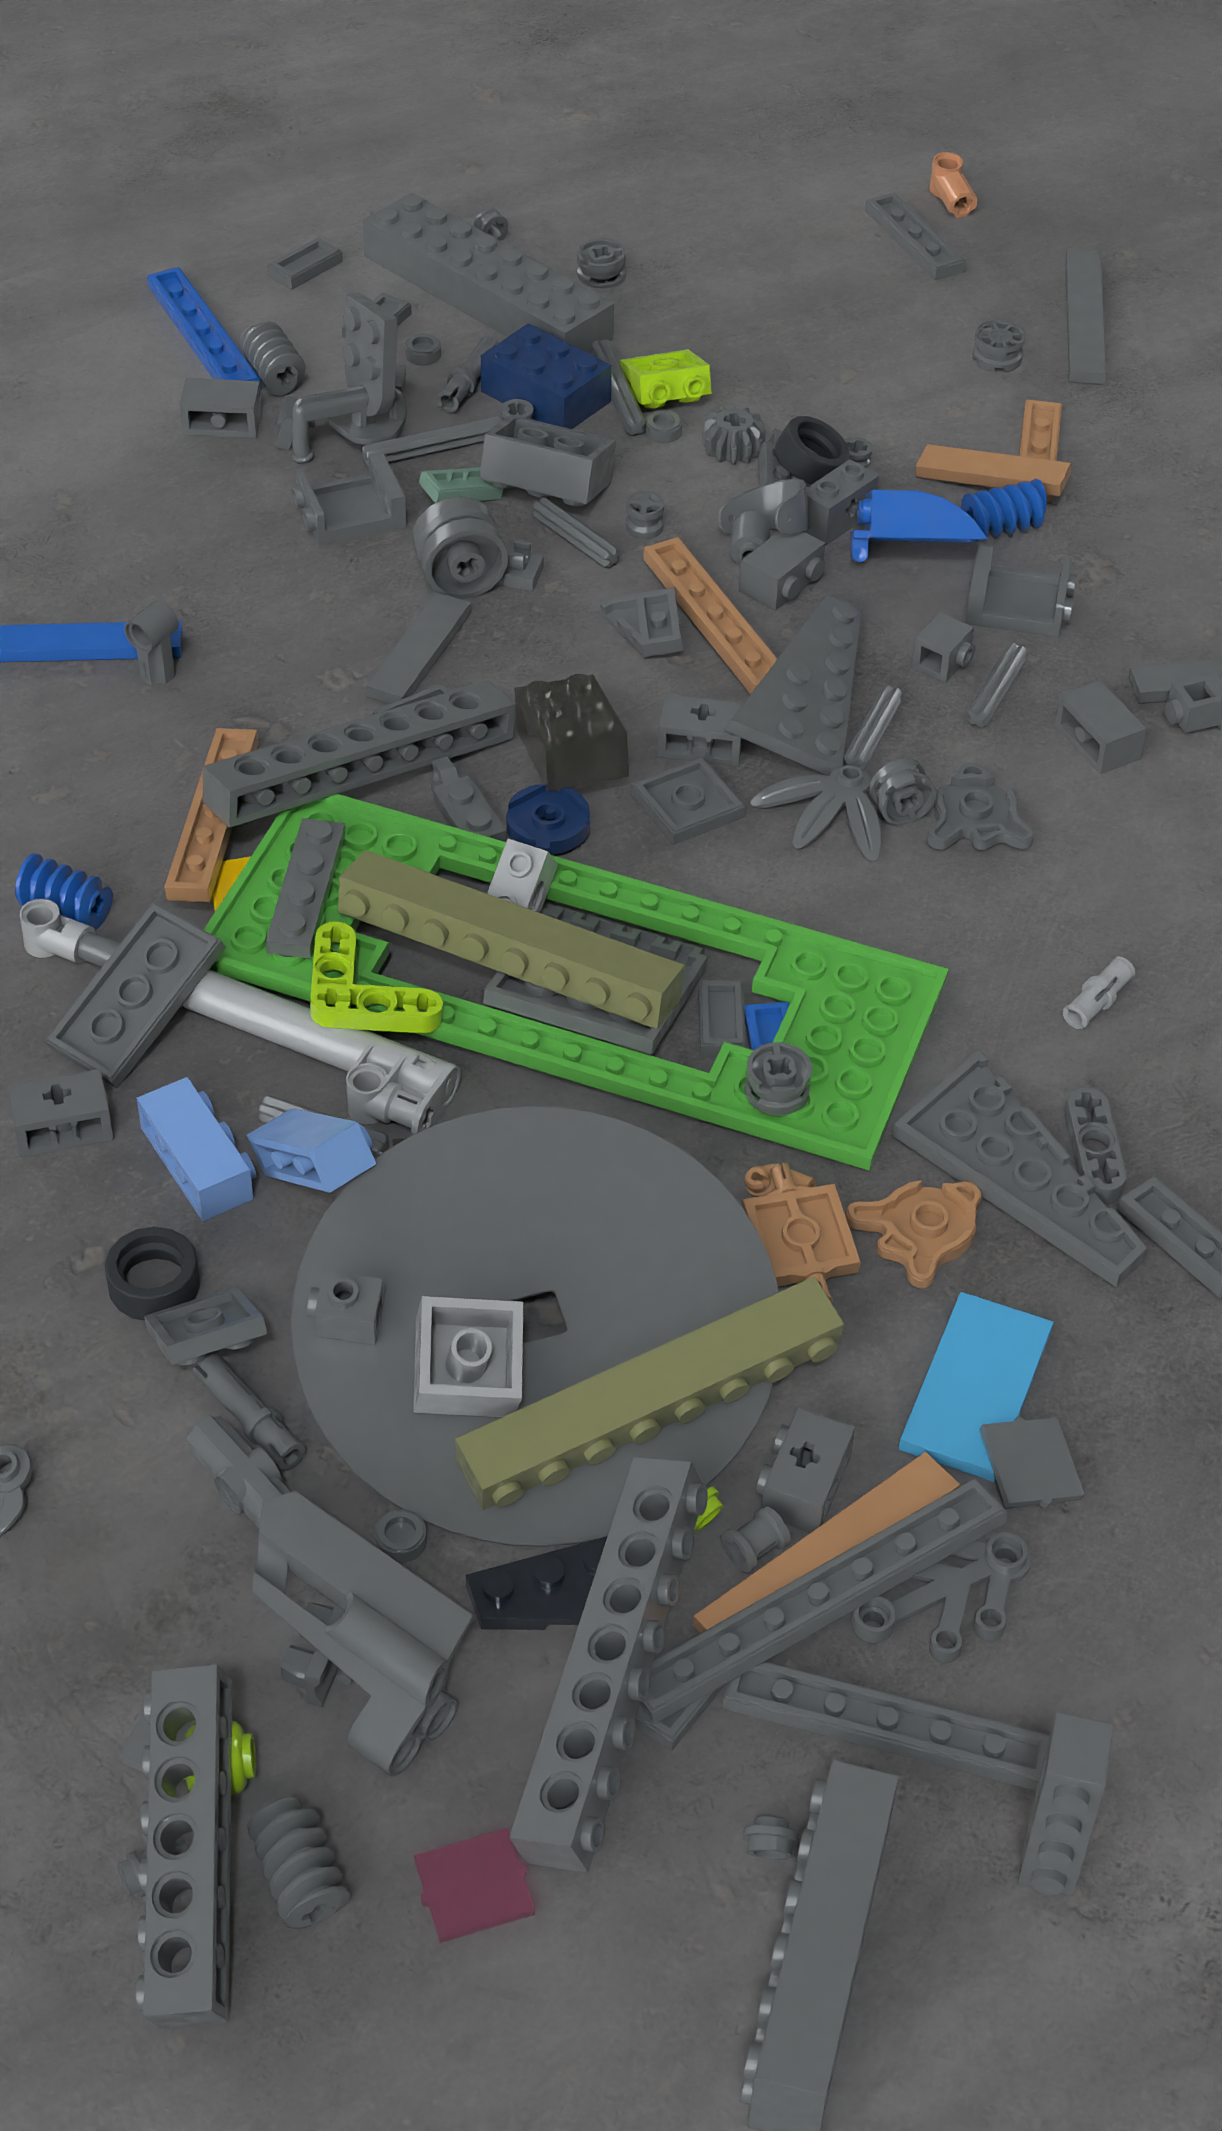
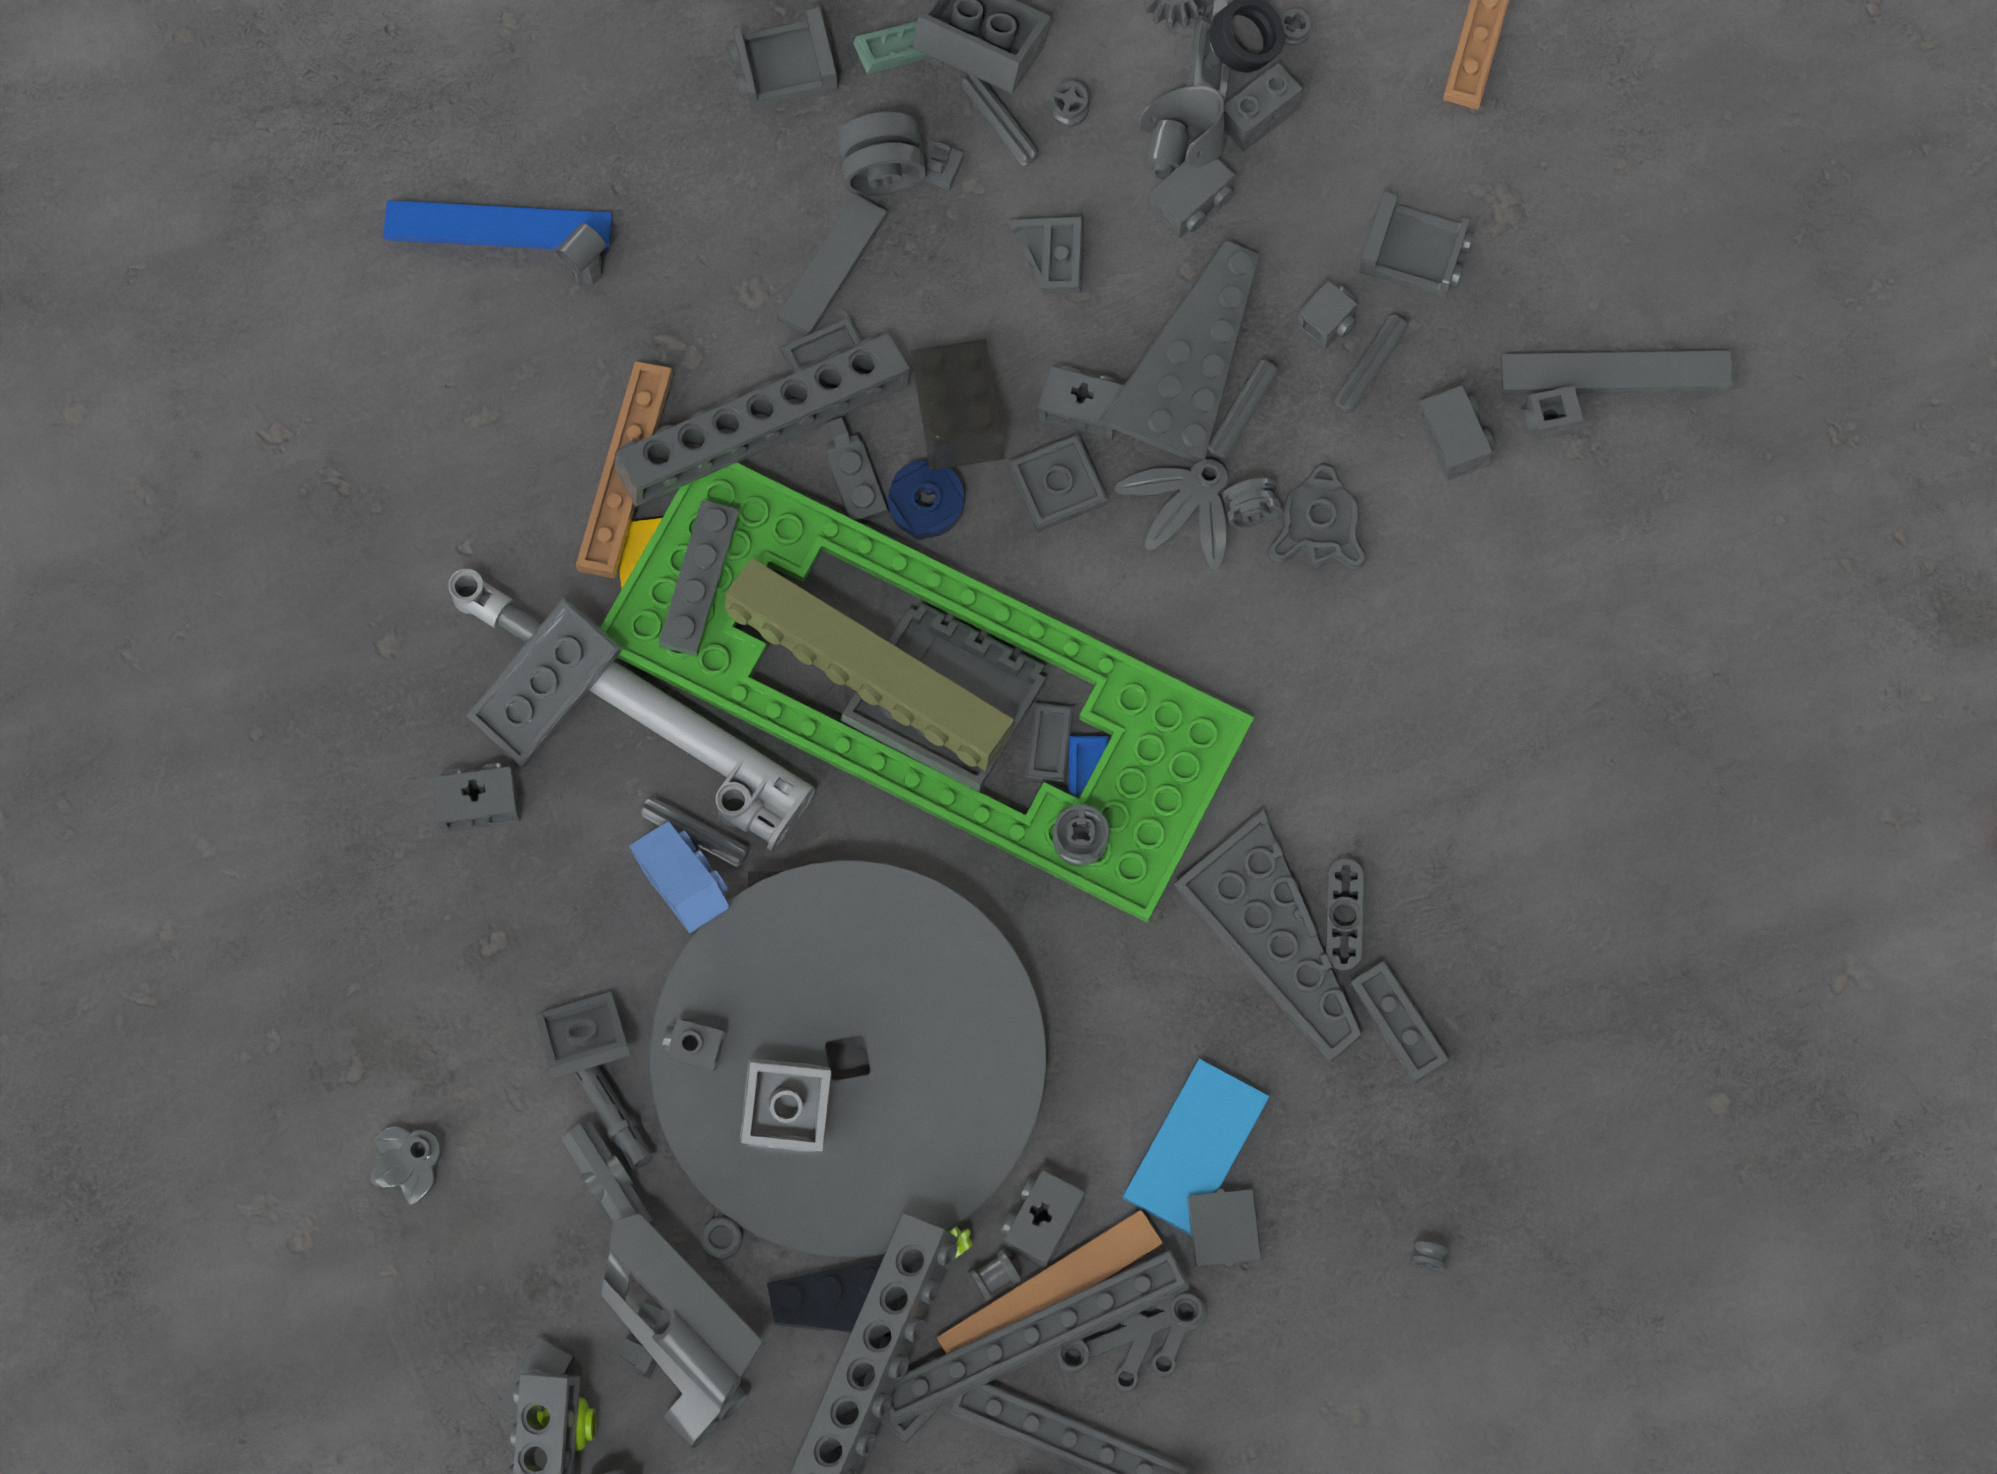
camera: 10 degrees right, 25 degrees up
(71, 891) = (485, 555): blue piece -> none
(148, 1245) = (531, 945): black tyre -> none
(196, 1148) = (587, 847): medium blue brick -> none
(344, 993) = (720, 704): lime beam -> none
(523, 875) = (887, 596): light grey brick -> none
(648, 1394) = (928, 1143): olive brick -> none
(711, 611) = (1114, 245): medium nougat plate -> none
(760, 1181) = (1067, 926): medium nougat arm -> none
(803, 1231) = (1077, 989): medium nougat plate -> none
(910, 517) = (1327, 151): blue piece -> none
(921, 1226) = (1183, 984): medium nougat tile -> none
(990, 468) = (1424, 71): medium nougat tile -> none
(1007, 507) = (1424, 132): blue piece -> none
(1099, 992) = (1384, 750): light grey pin -> none

